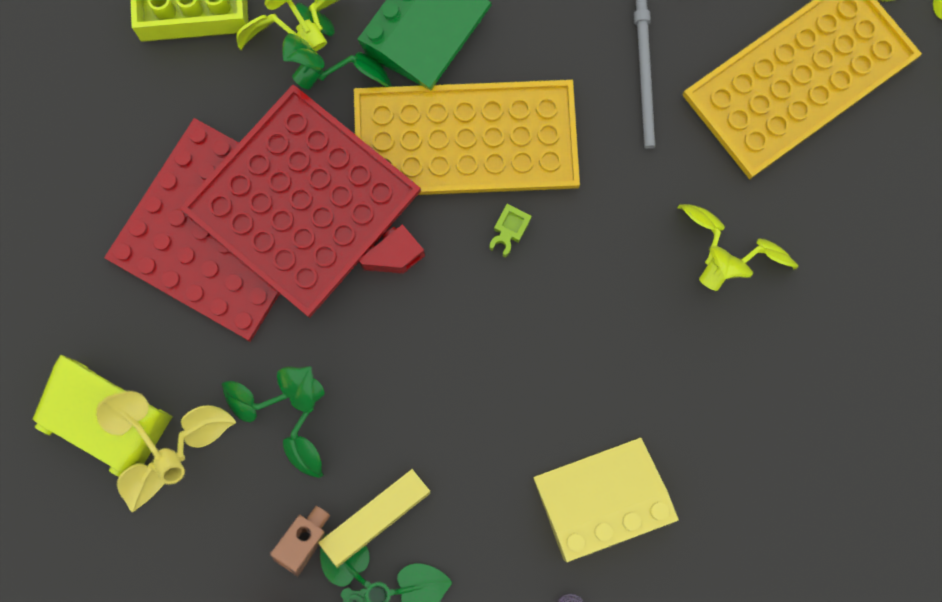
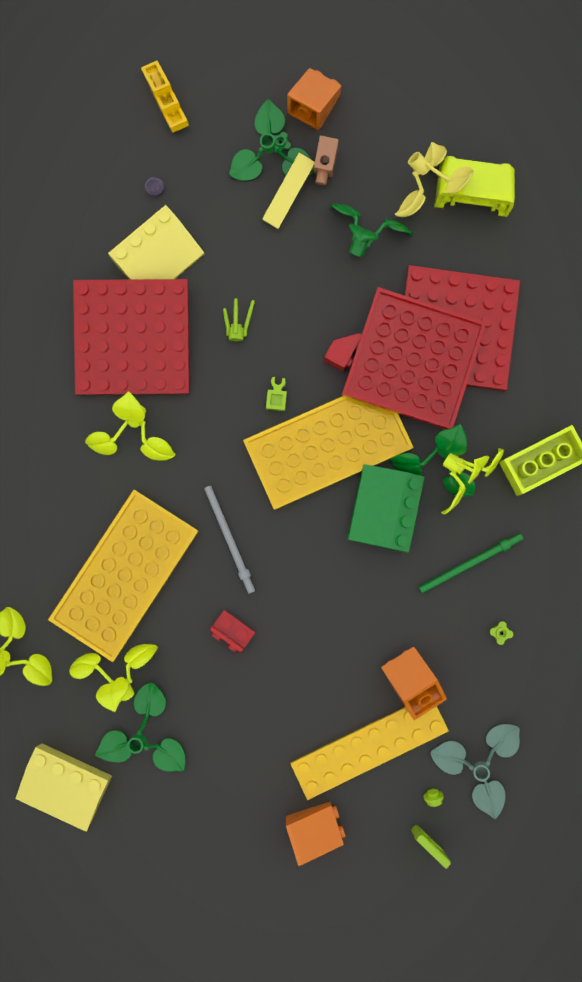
camera: 160 degrees right, 5 degrees up
(531, 340) = (236, 332): none -> lime plant
(684, 390) = (131, 336): none -> red plate

